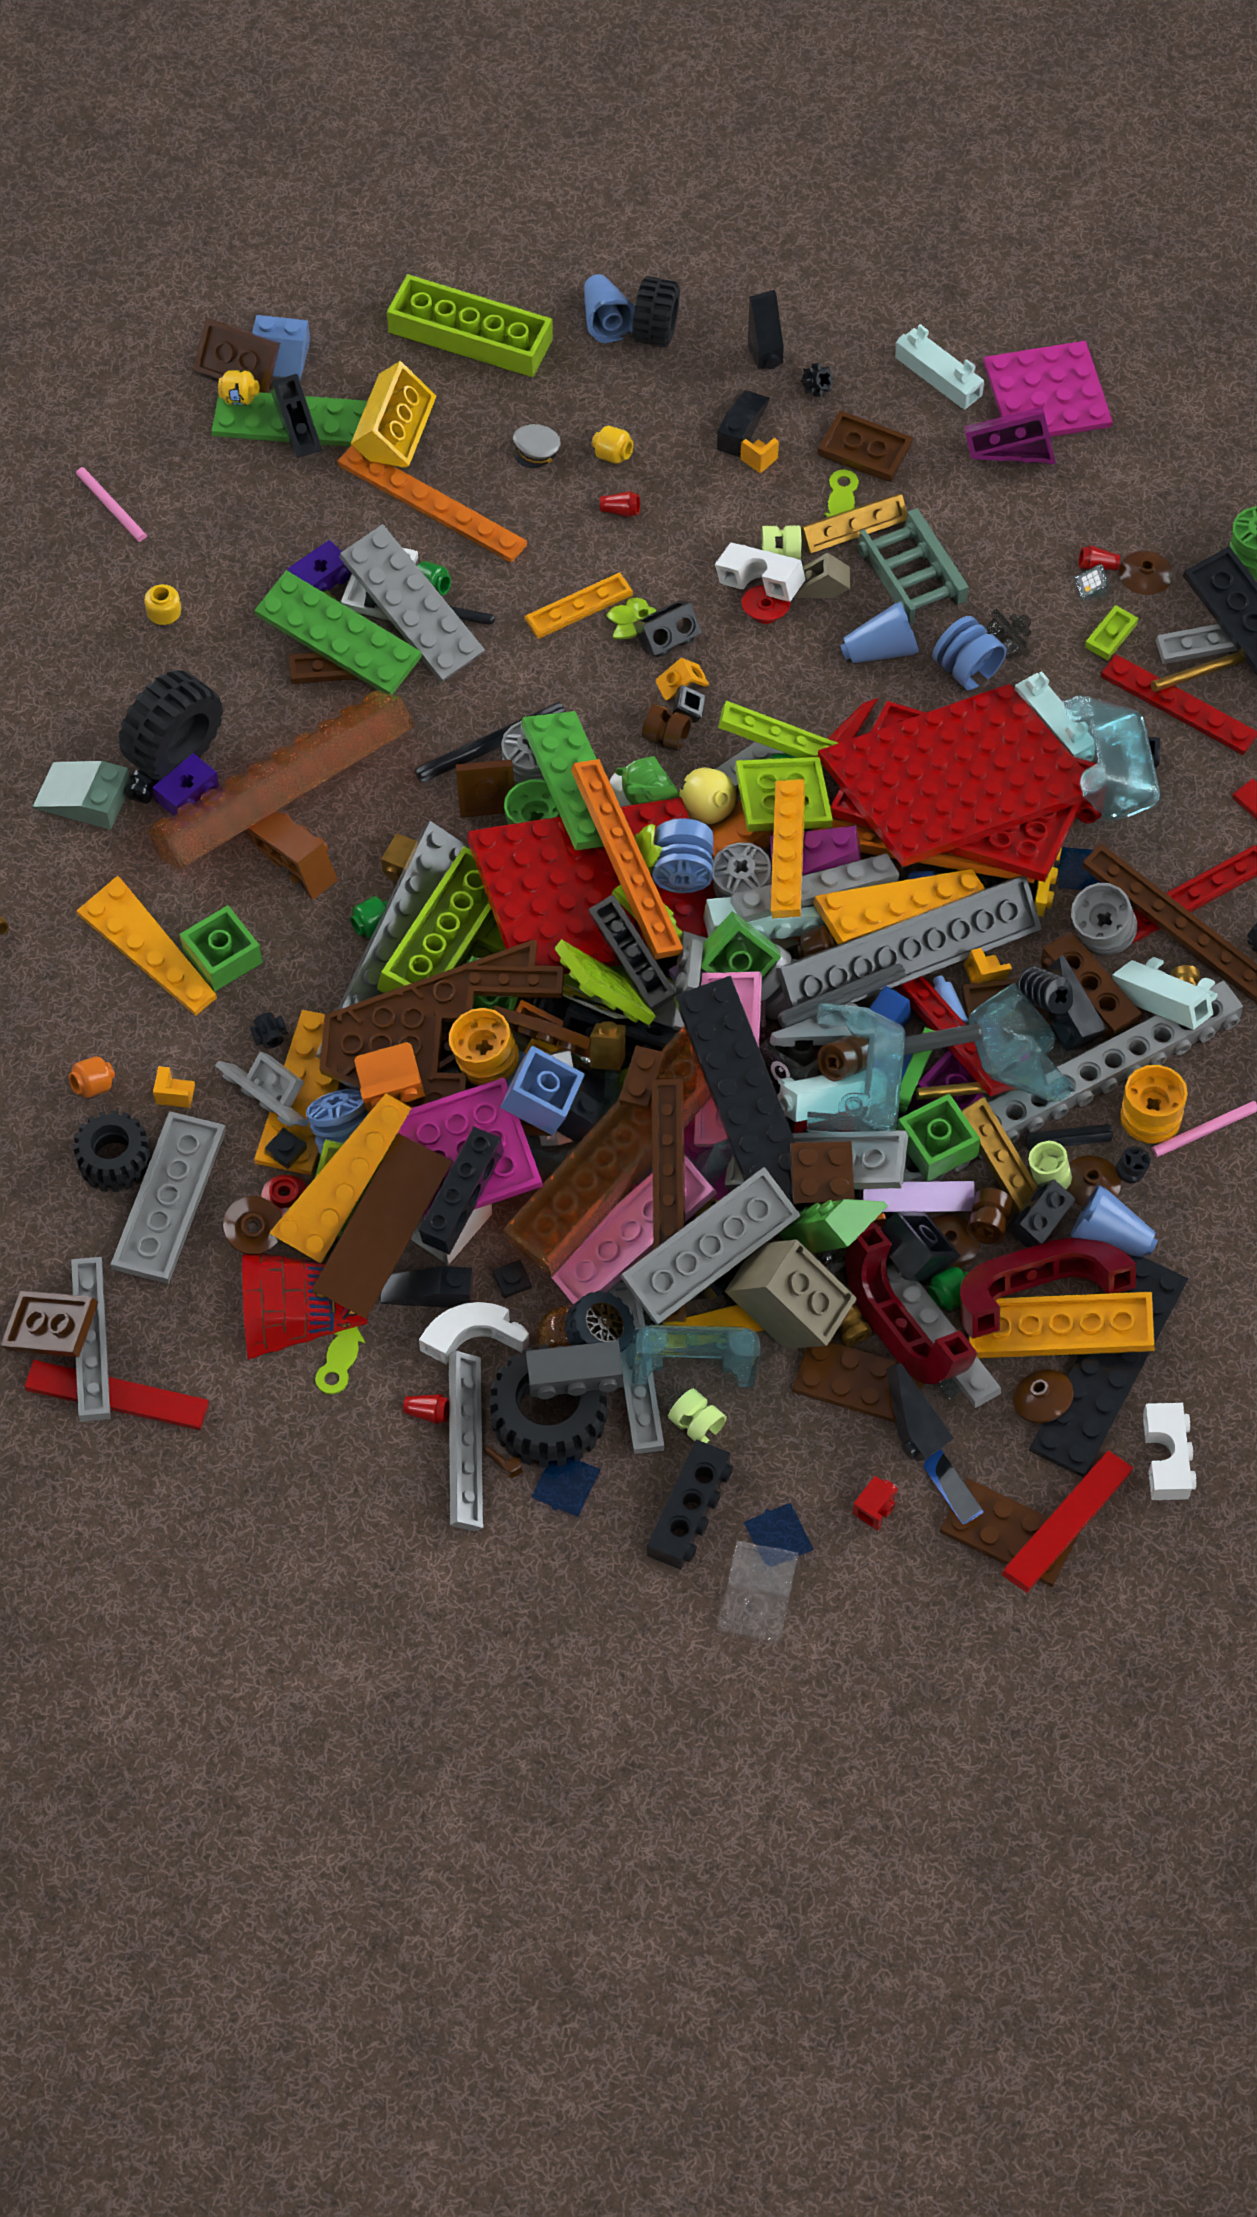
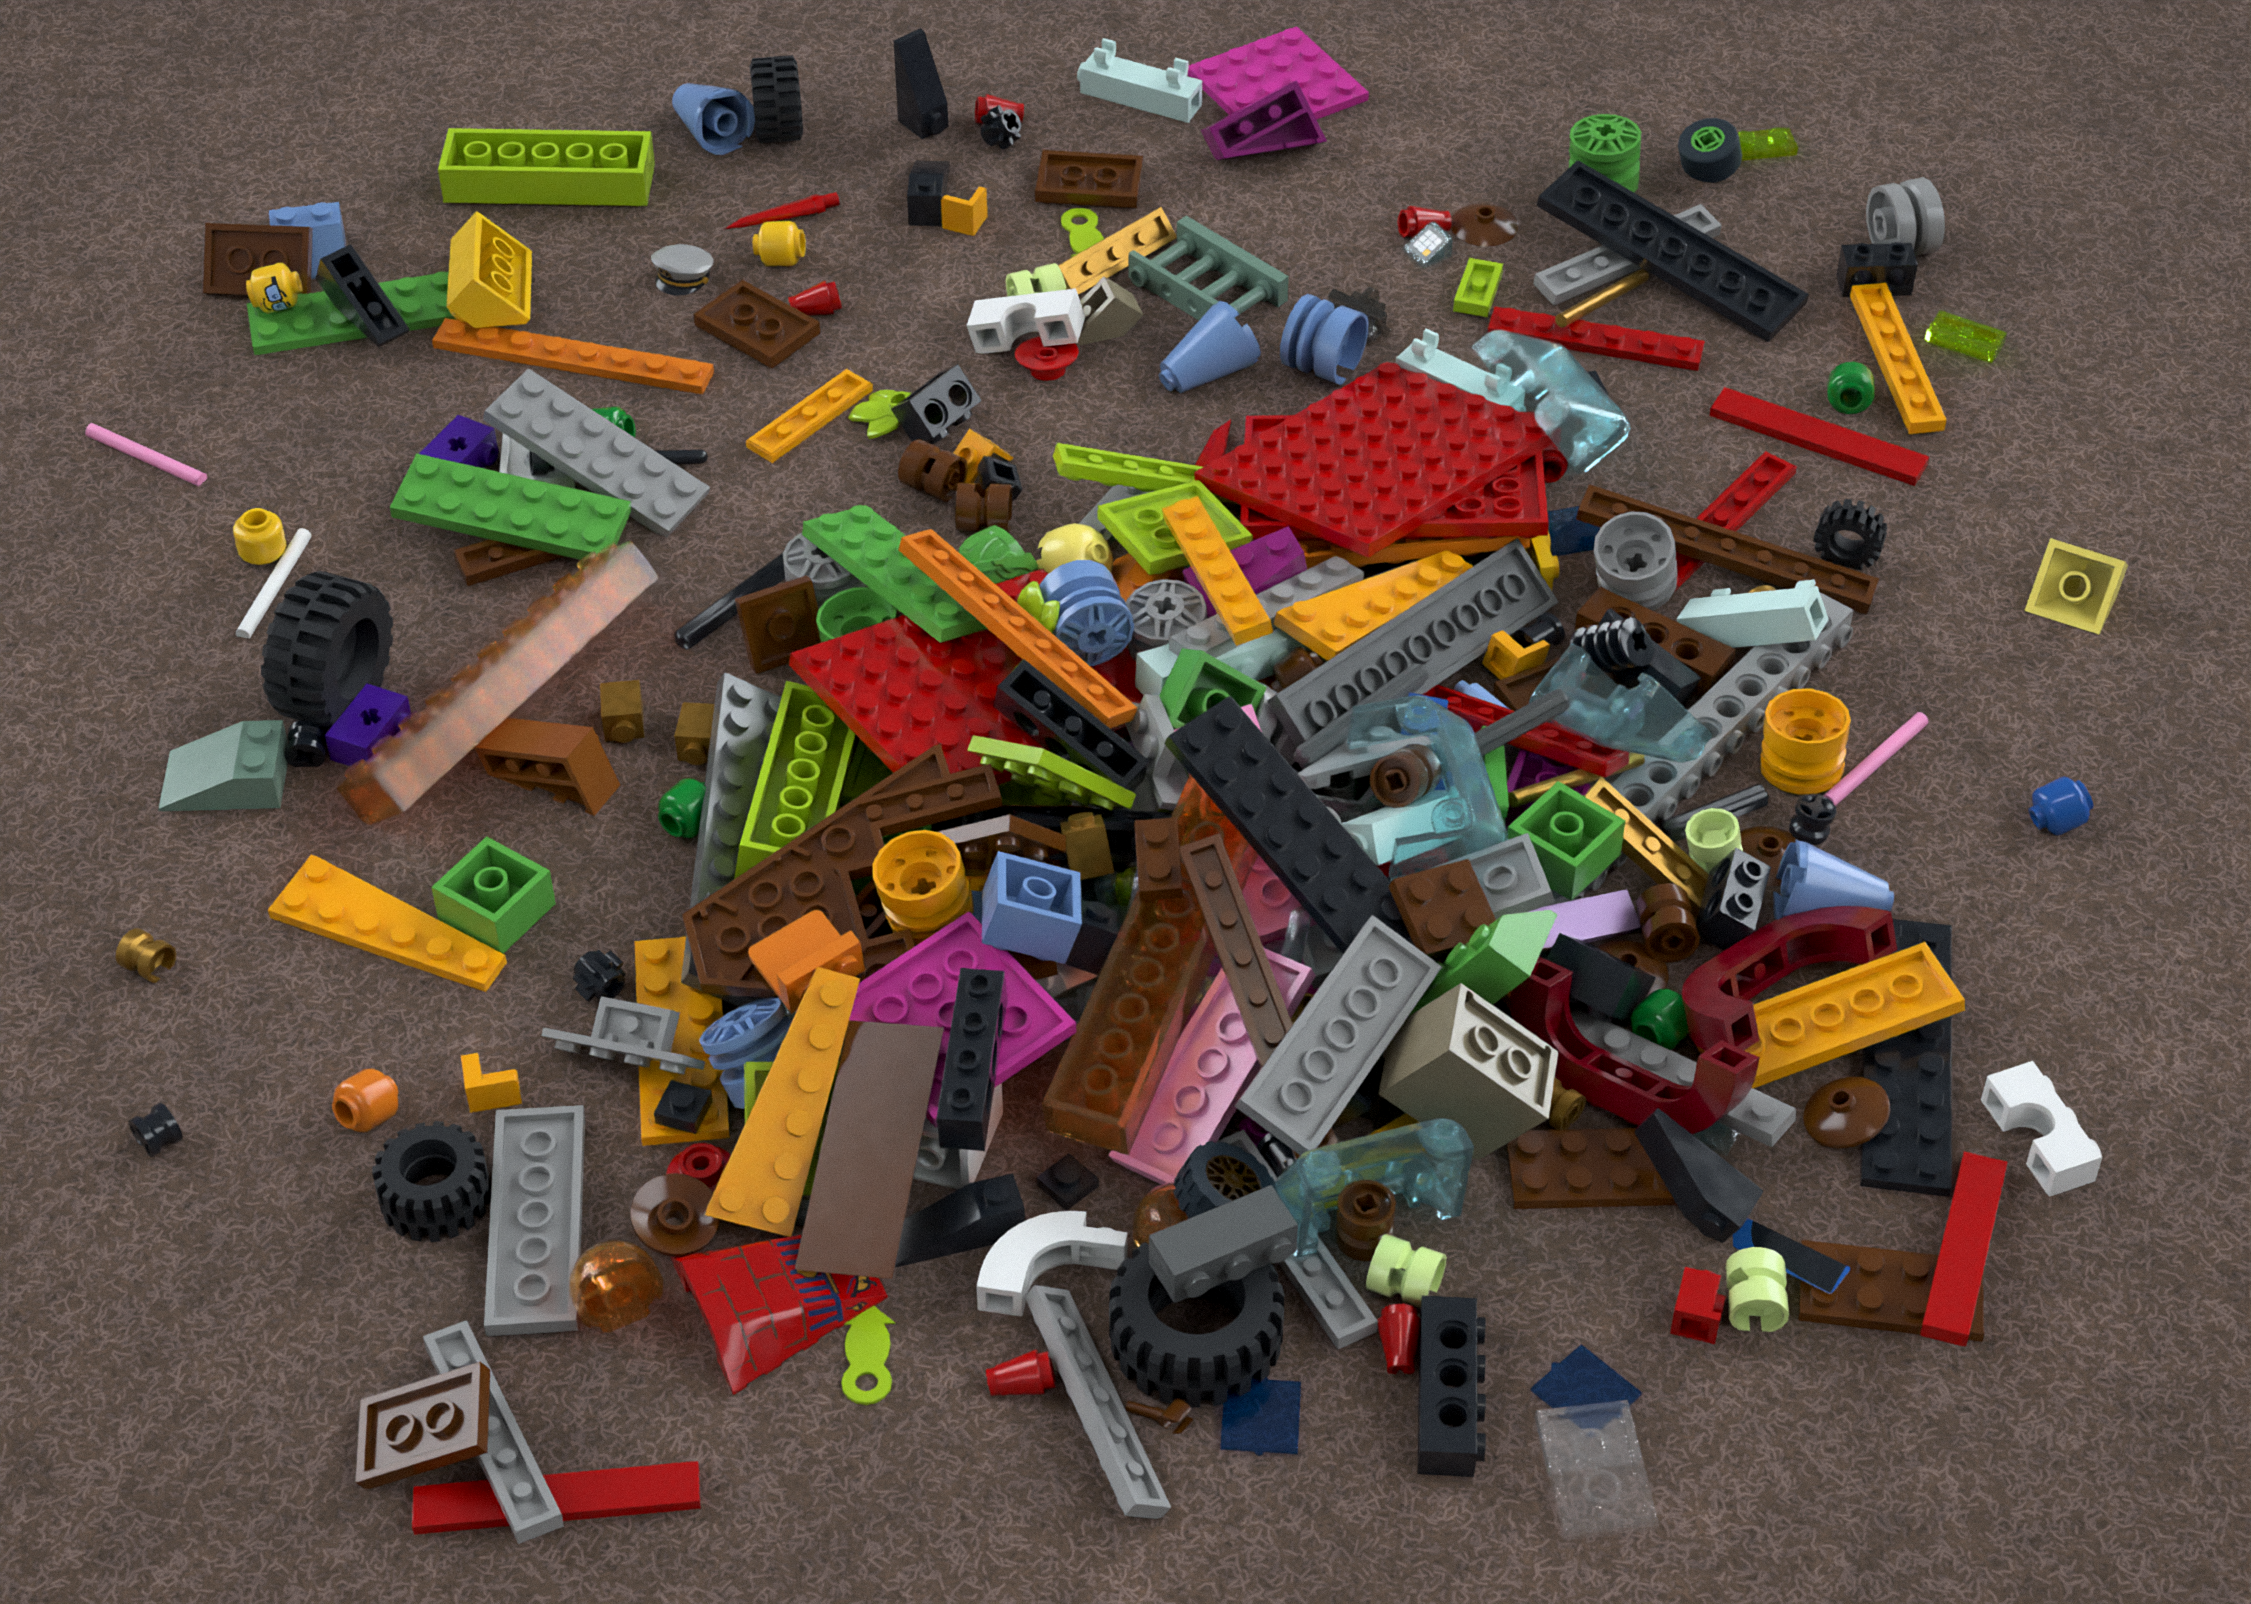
camera: 20 degrees left, 15 degrees down
(163, 642) = (273, 584): none -> white bar
(197, 1263) = (614, 1285): none -> clear orange cylinder
(356, 824) = (622, 711): none -> pearl gold brick
(571, 512) = (757, 323): none -> reddish brown plate
(643, 683) = (932, 470): none -> reddish brown wheel
(645, 411) = (805, 206): none -> red bar
(673, 1460) = (1399, 1335): none -> red cone
(685, 1371) = (1363, 1218): none -> reddish brown wheel
(819, 355) = (988, 102): none -> red cone
(917, 1503) = (1757, 1288): none -> yellowish green wheel
(1013, 953) = (1545, 628): none -> black bush

